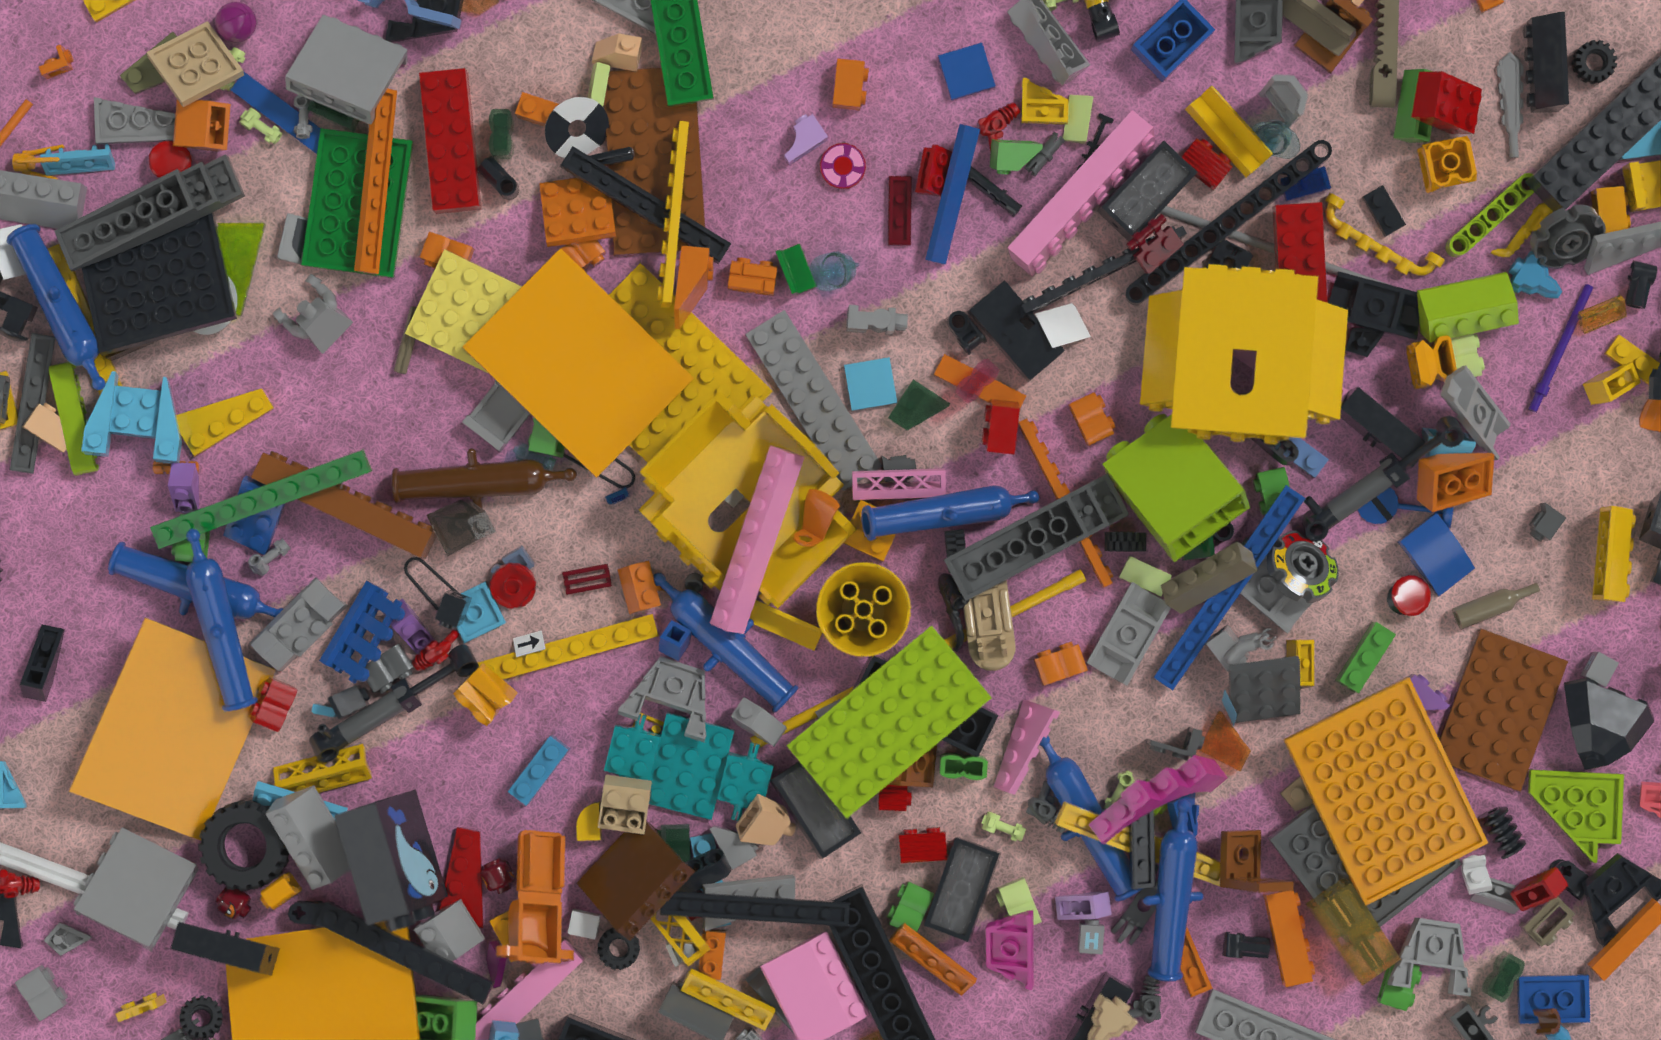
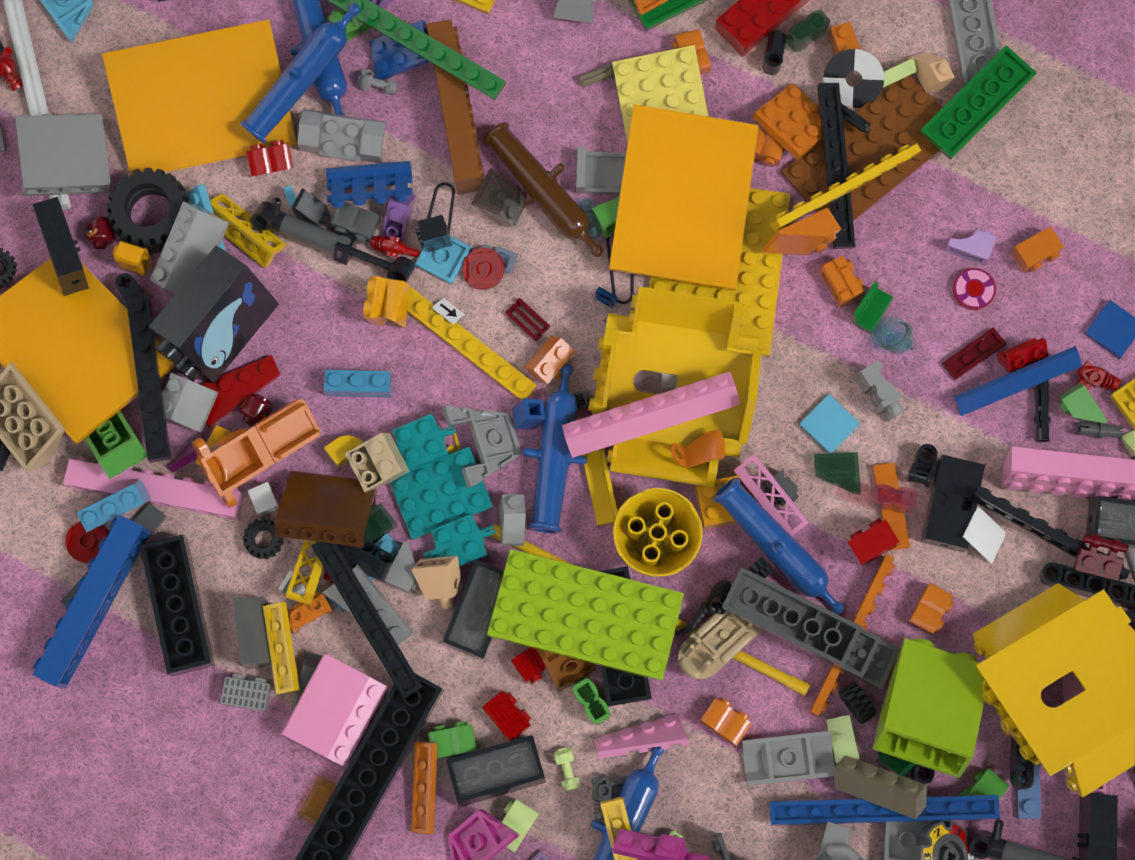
camera: 55 degrees right, 10 degrees down
(812, 397) = (786, 388): light grey plate -> none

